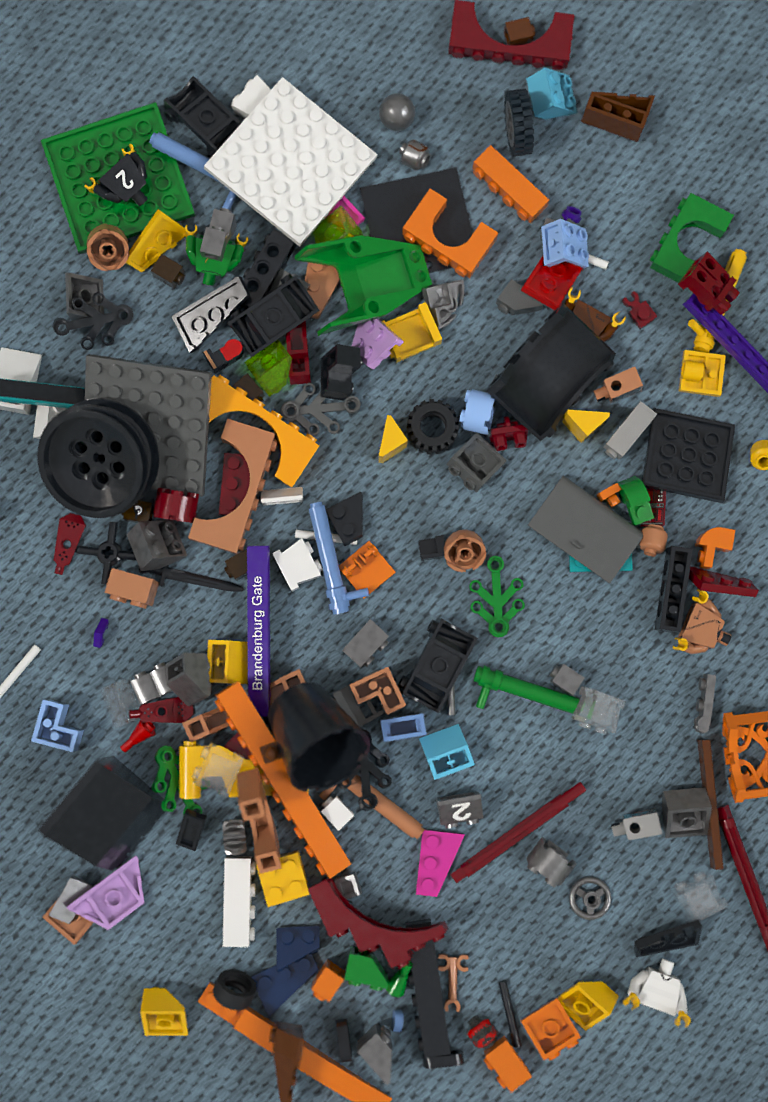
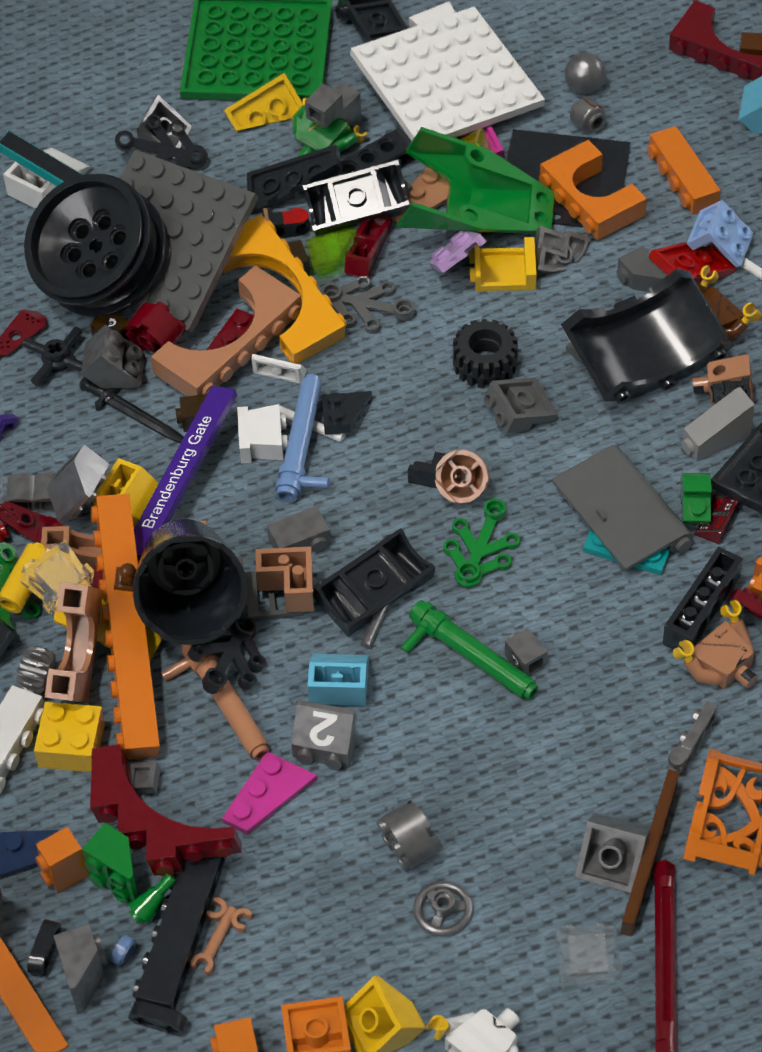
camera: 30 degrees right, 30 degrees down
(108, 259) = (204, 78): nougat brick -> none
(123, 180) = (259, 41): black torso -> none
(129, 586) = (62, 387): nougat brick -> none
(168, 271) = (264, 133): dark brown brick -> none
(188, 157) = (341, 48): medium blue cylinder -> none
(295, 944) = (45, 815): dark blue wing -> none
(336, 812) = (172, 693): white brick -> none
(337, 371) = (405, 266): black brick -> none
(366, 568) = (341, 464): orange hinge -> none
(392, 441) = (427, 348): yellow slope -> none
(403, 727) = (298, 625): medium blue hips -> none
(478, 412) = (545, 353): light blue brick -> none
(482, 1032) = (224, 1004): clear smoke head -> none
(506, 432) = (572, 389): dark red hips -> none
(509, 1014) = (272, 1003): black bar -> none
(517, 833) = (386, 797): dark red piece -> none
(519, 122) = (714, 110): black wheel -> none
(572, 213) = (745, 216): dark purple plate -> none
(583, 423) = (668, 400): yellow slope -> none
(598, 710) = (549, 692): clear hips -> none
(610, 495) = (667, 484): orange tile -> none
(648, 825) = (545, 836): light grey torso -> none
(653, 540) = (700, 545): nougat head -> none
(671, 939) = (525, 985): black wing -> none

